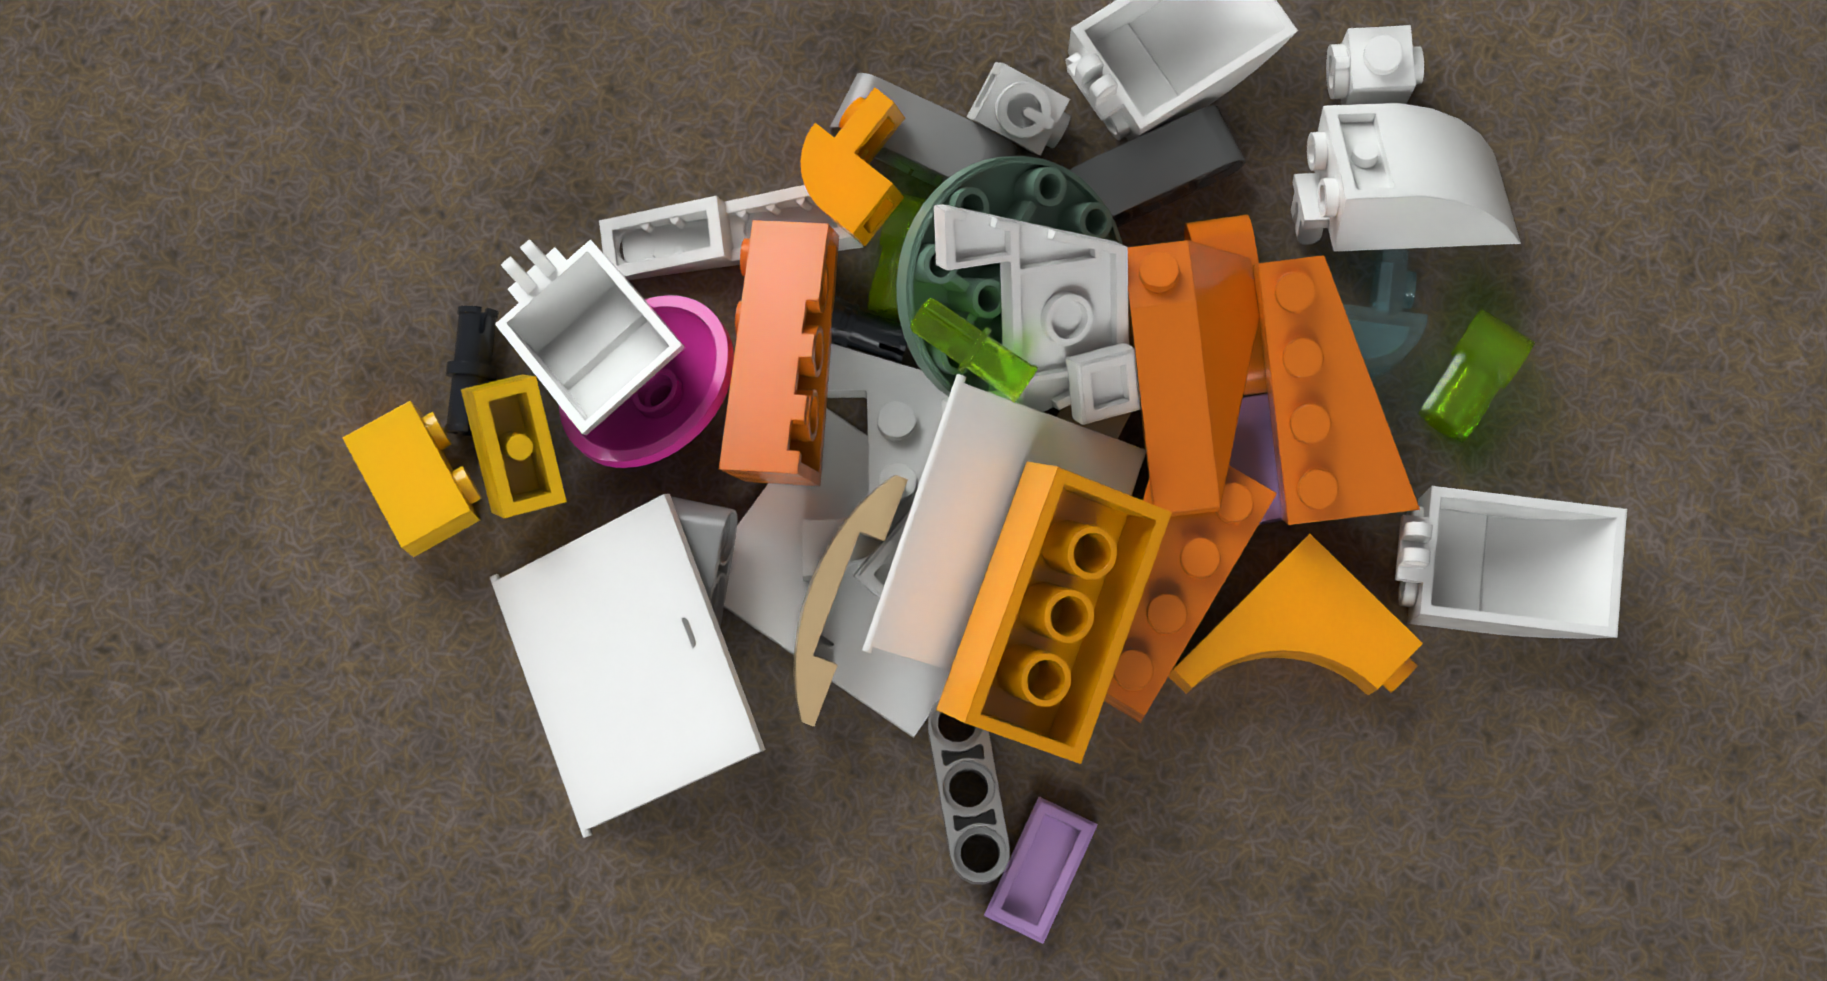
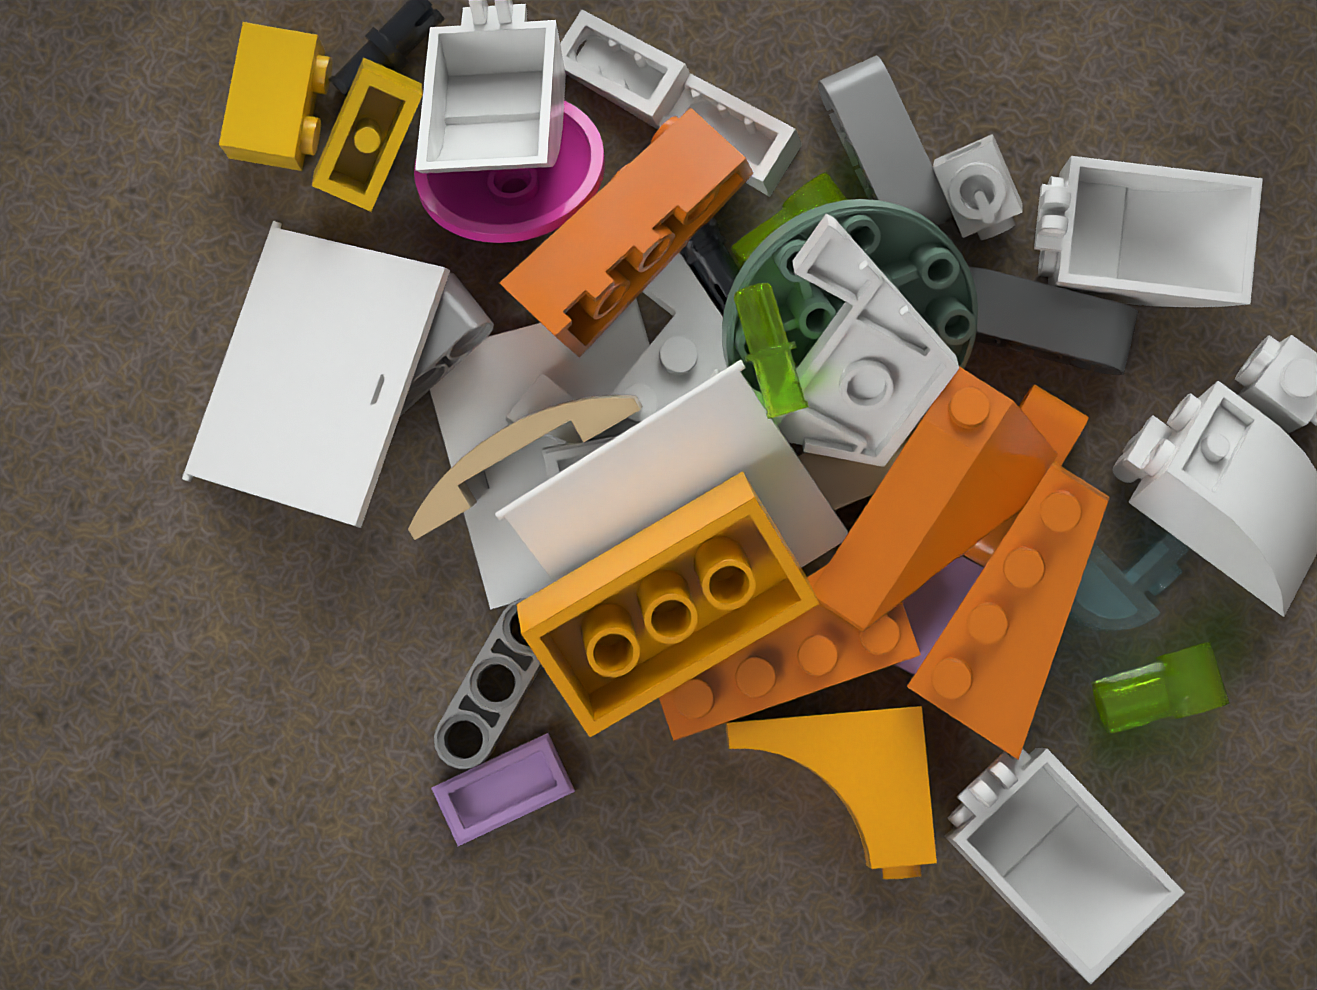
camera: 35 degrees right, 5 degrees up
(839, 169) = (789, 125): light orange brick -> none
(1103, 383) = (854, 459): white tile -> none

